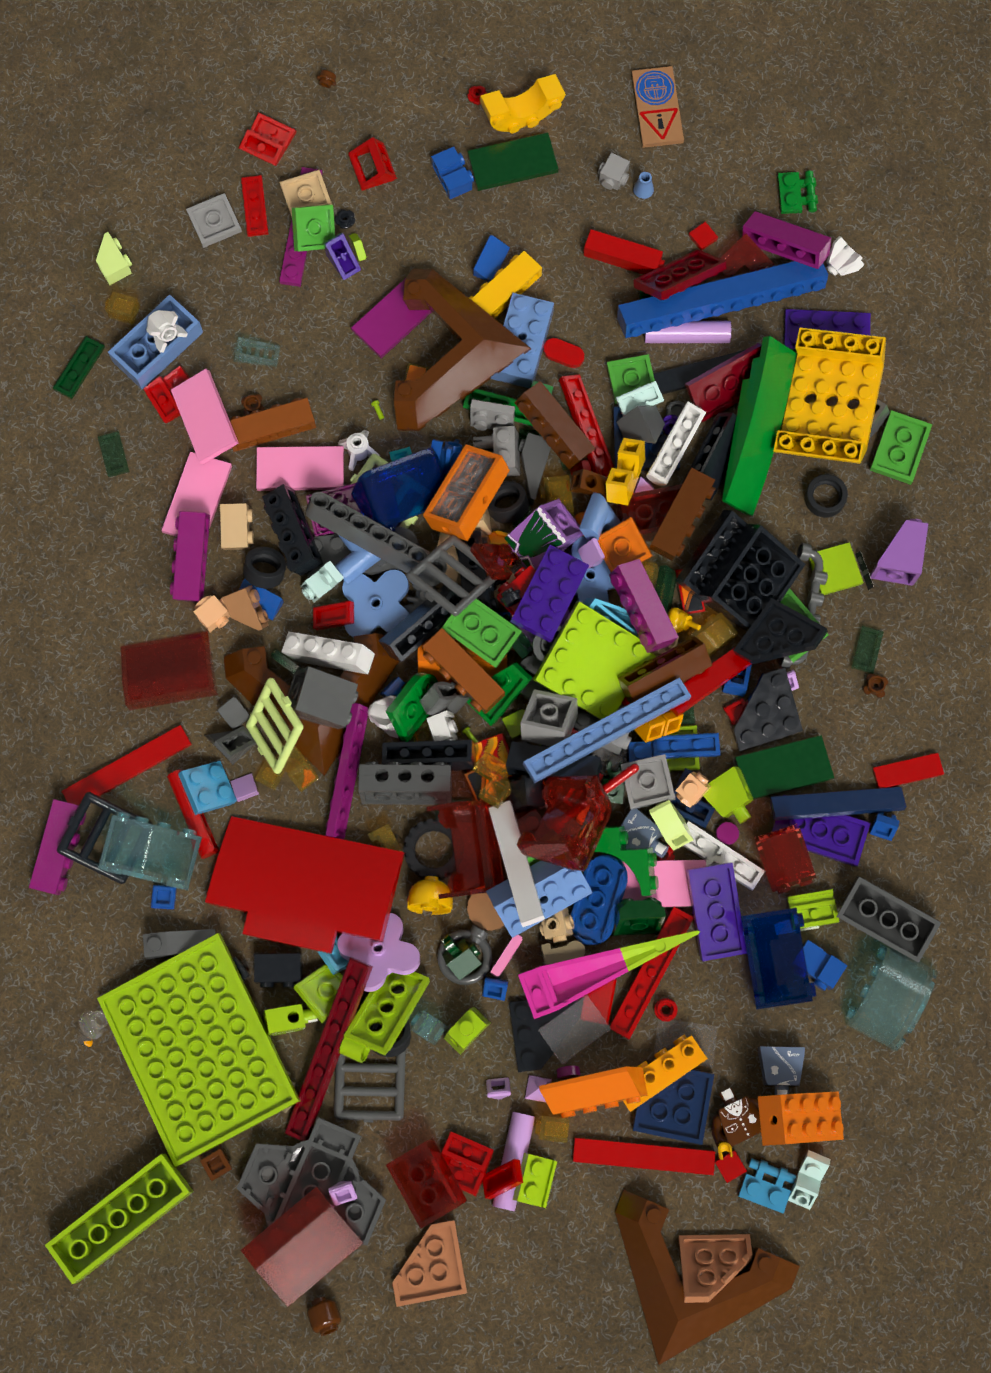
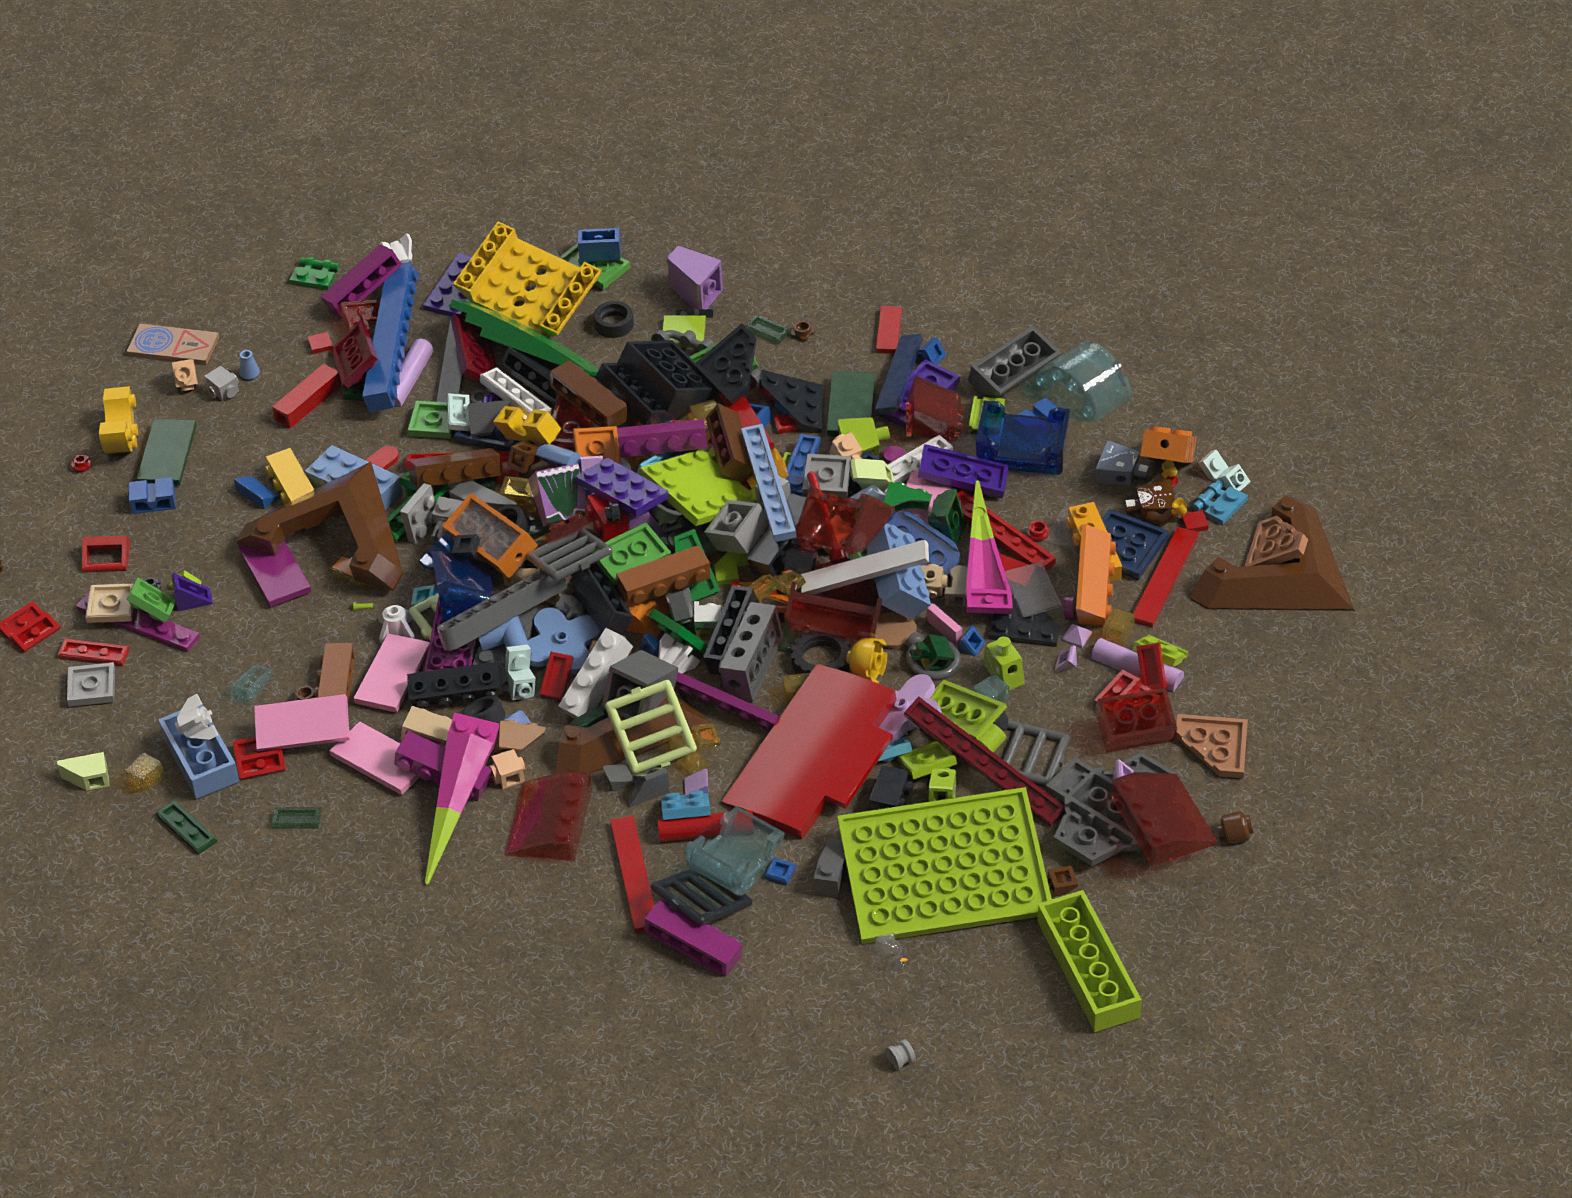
camera: 70 degrees left, 30 degrees down
(198, 572) = (466, 753): none -> dark pink plate
(438, 476) = (466, 546): none -> black tile
(612, 134) = (185, 374): none -> light nougat brick
(919, 443) = (599, 244): none -> blue slope

